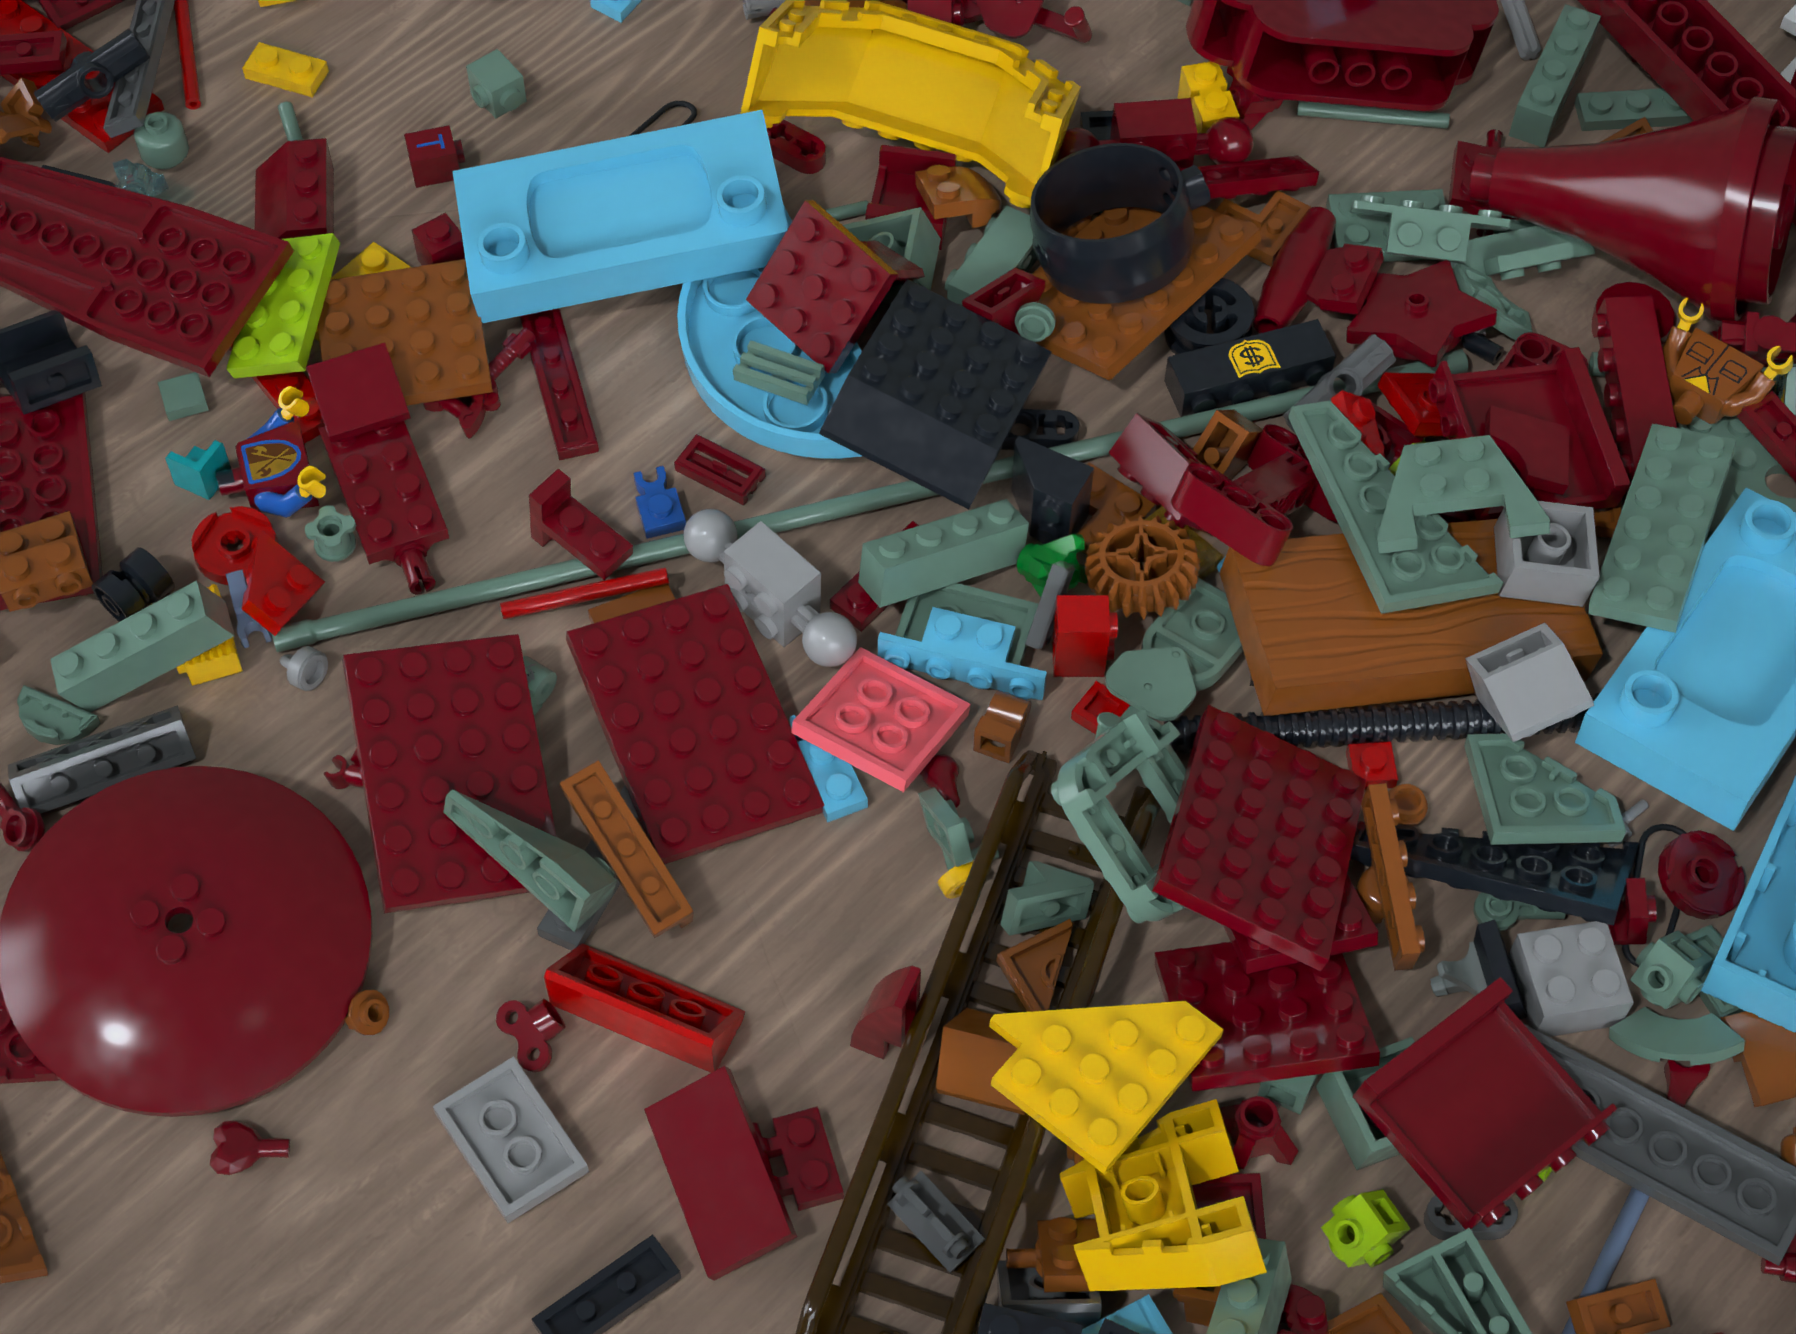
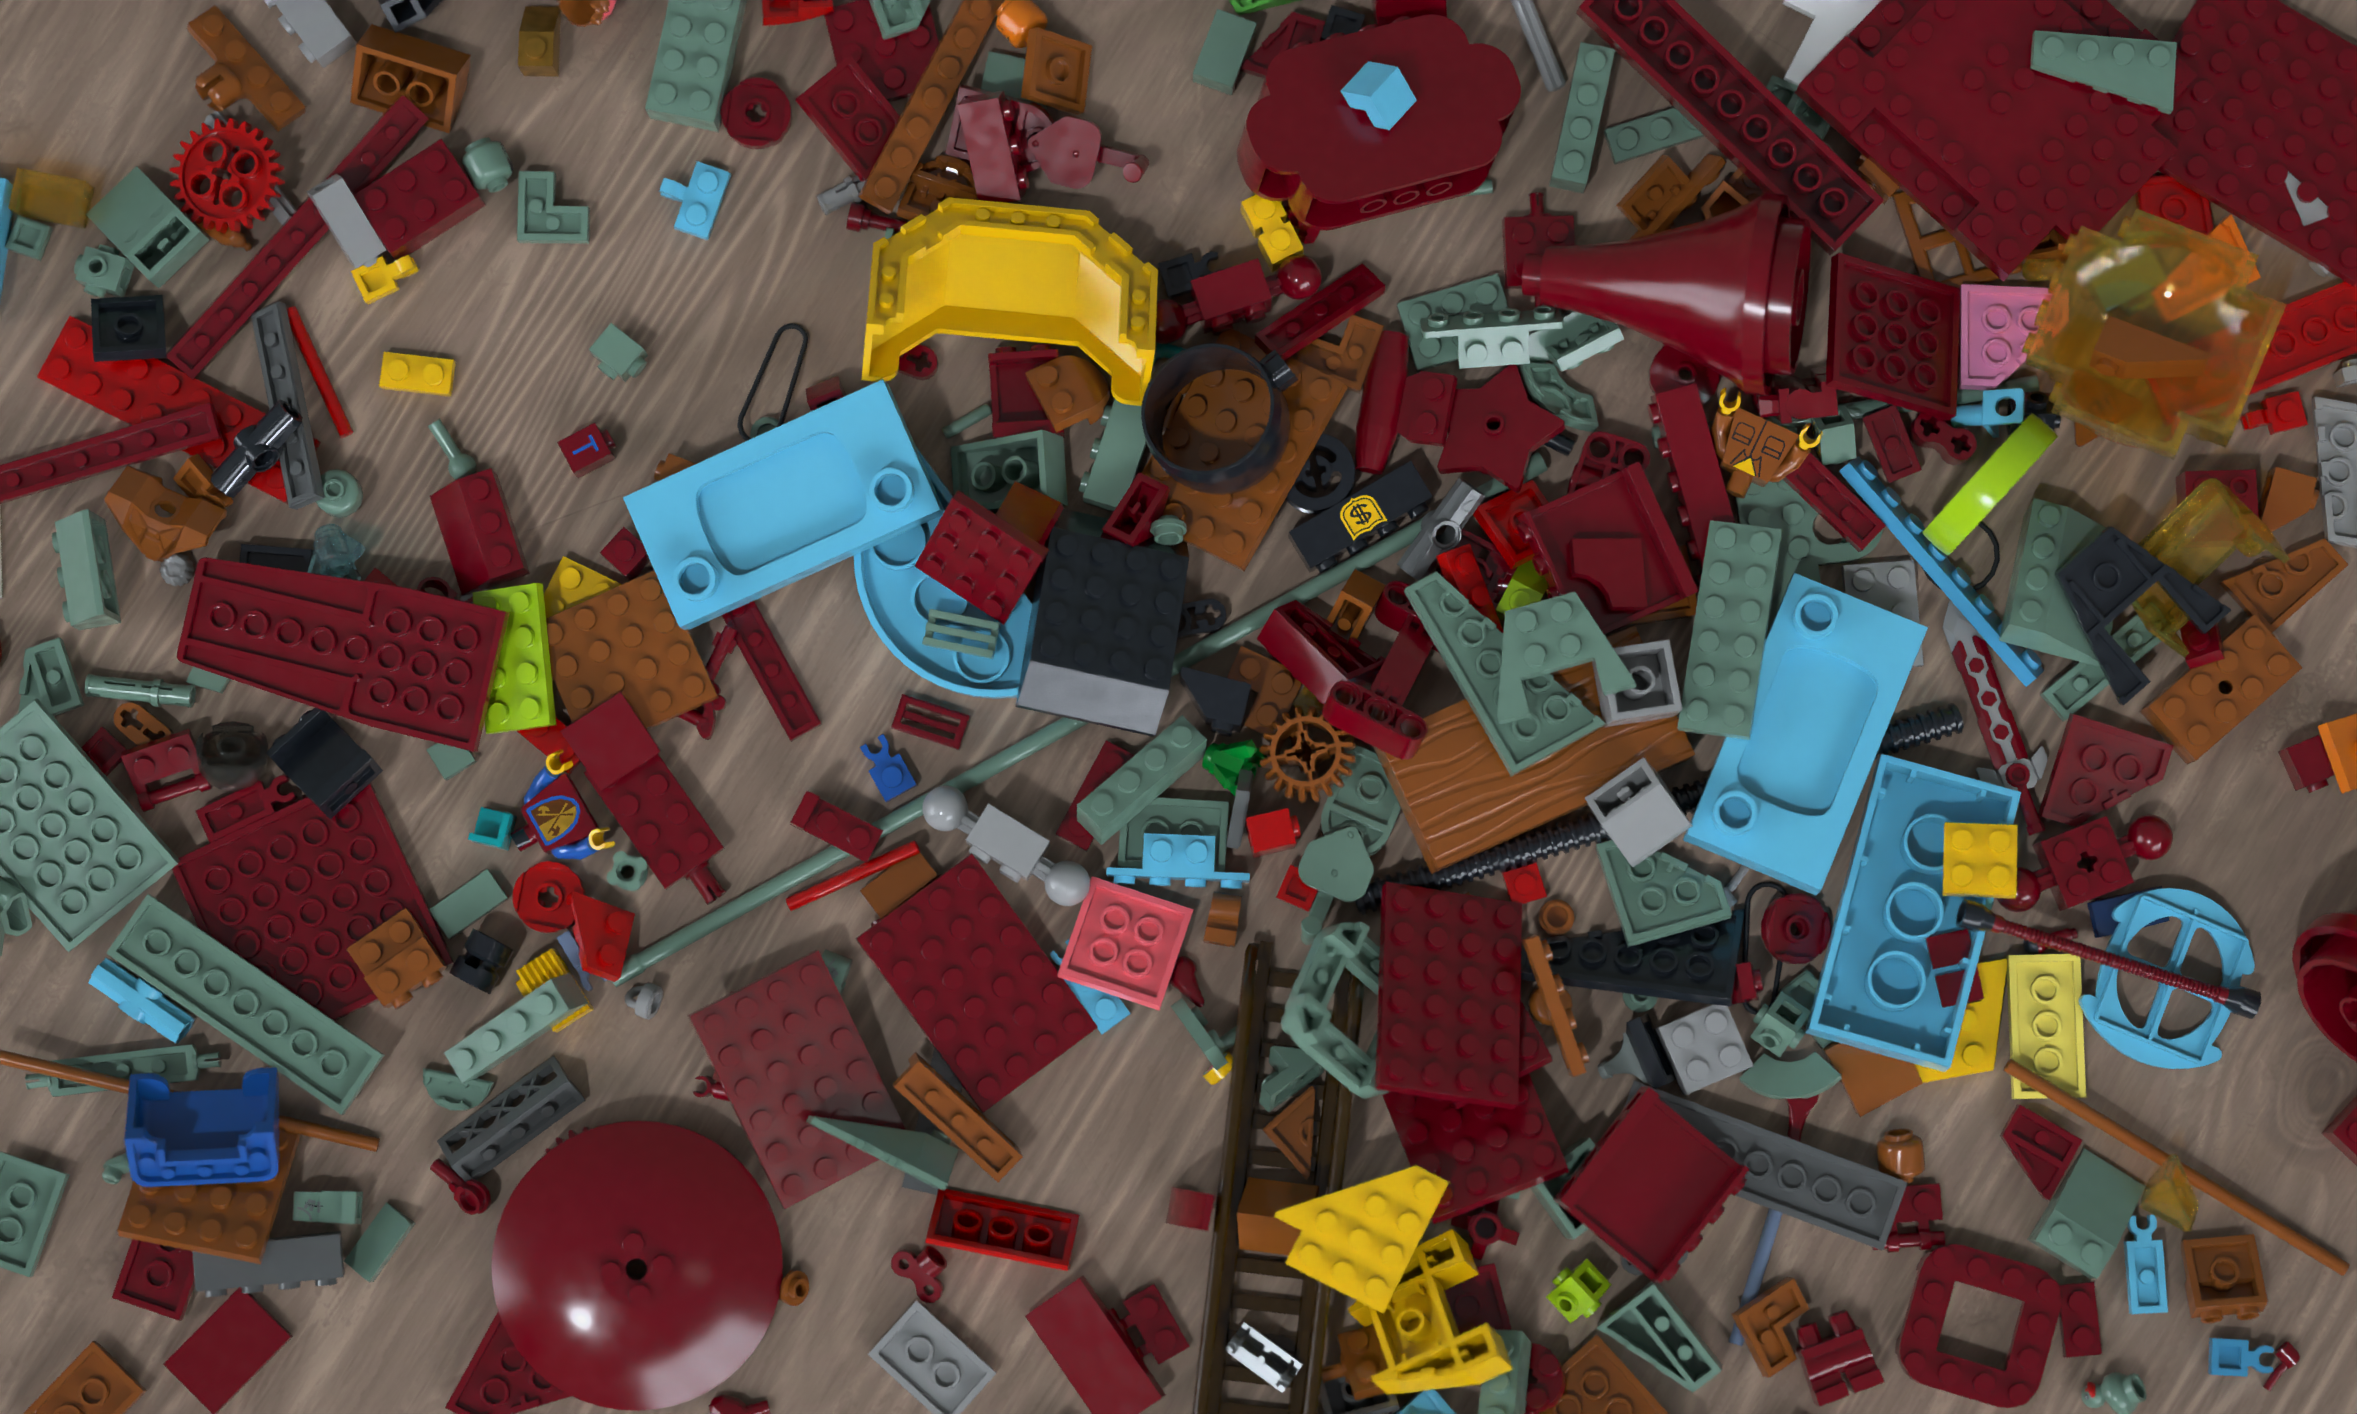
camera: 10 degrees left, 25 degrees up
(154, 532) = (468, 904): none -> sand green tile

